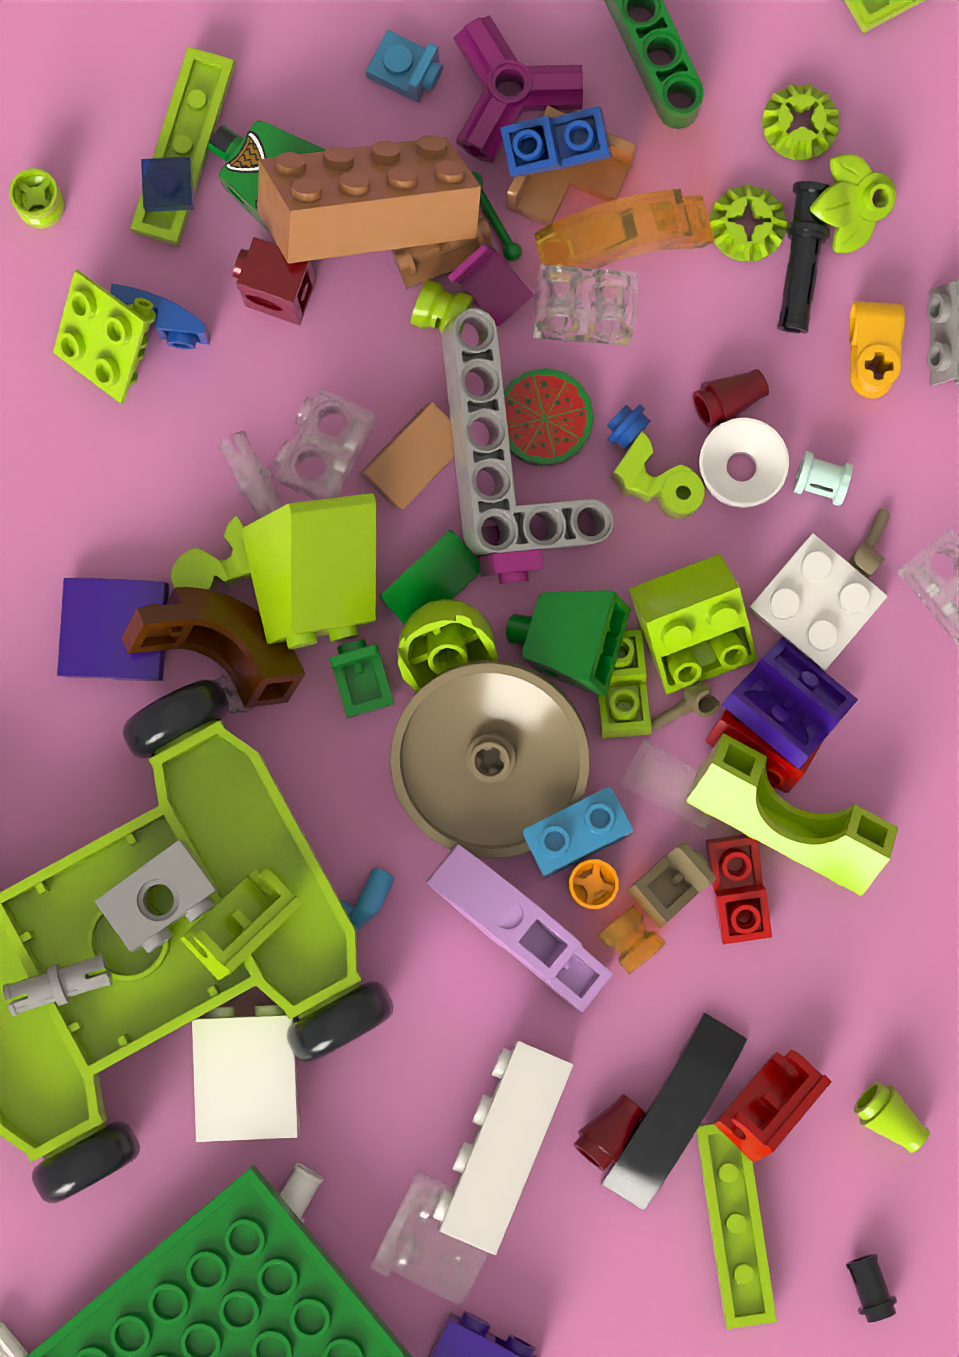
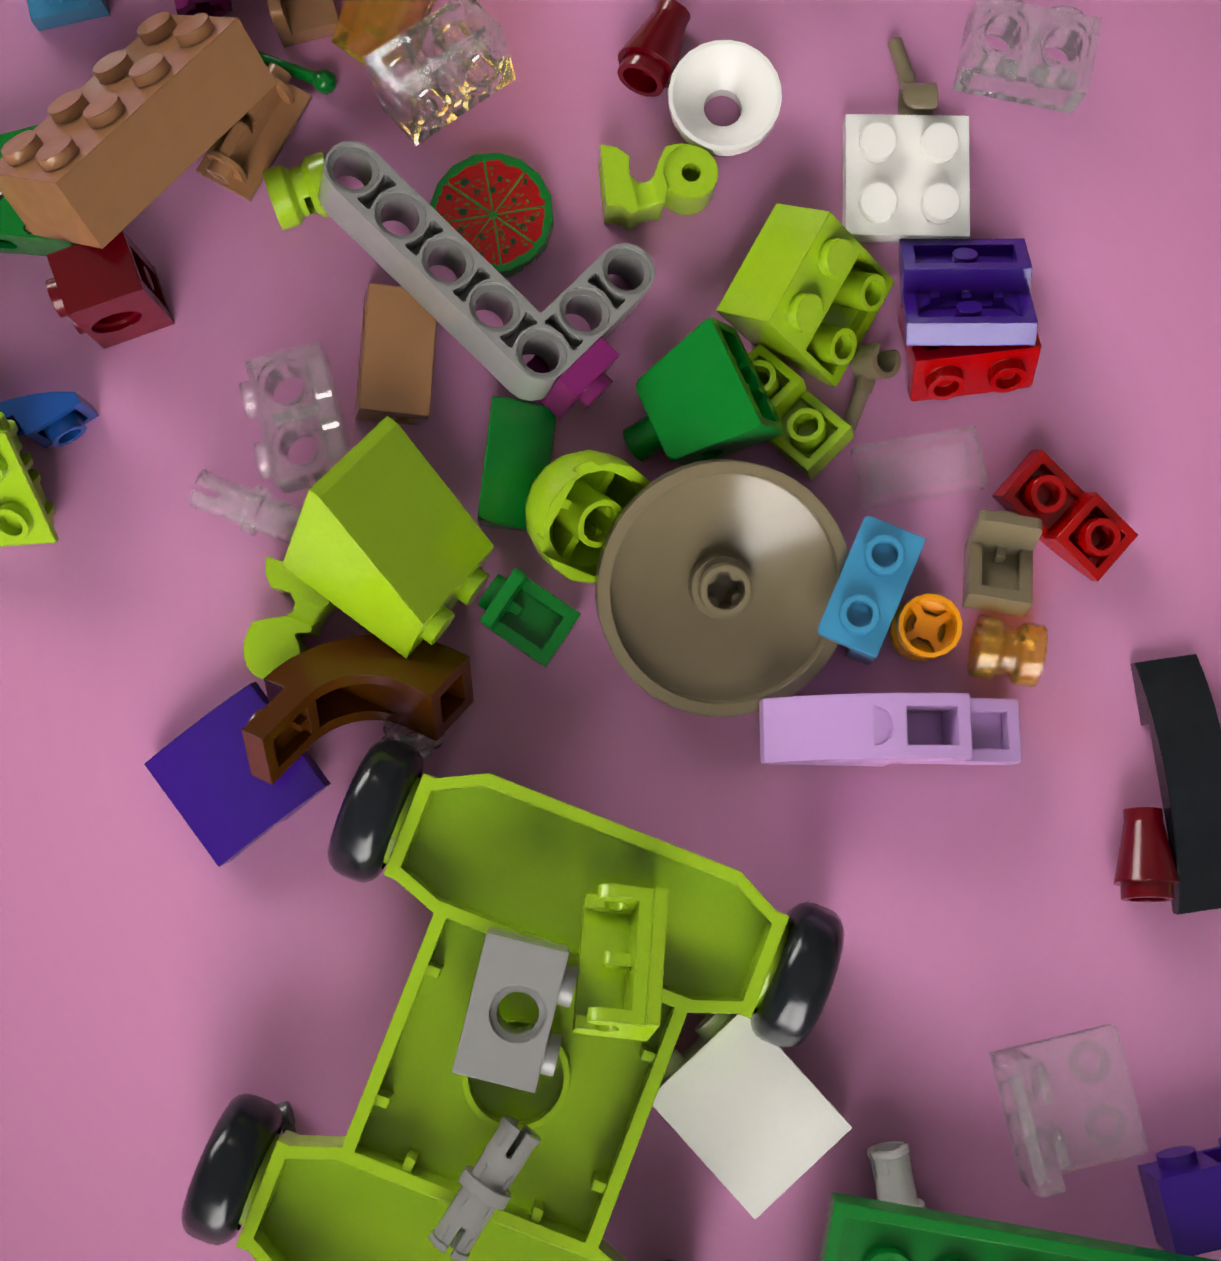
camera: 45 degrees left, 0 degrees up
(370, 898) = (719, 825): dark azure arm -> none
(492, 283) = (322, 120): magenta bracket -> none
(504, 1146) = (1062, 963): white brick -> none
(627, 425) = (580, 155): blue plate -> none
(823, 478) = (811, 53): light aqua bush -> none
(840, 845) = (1136, 387): arch -> none

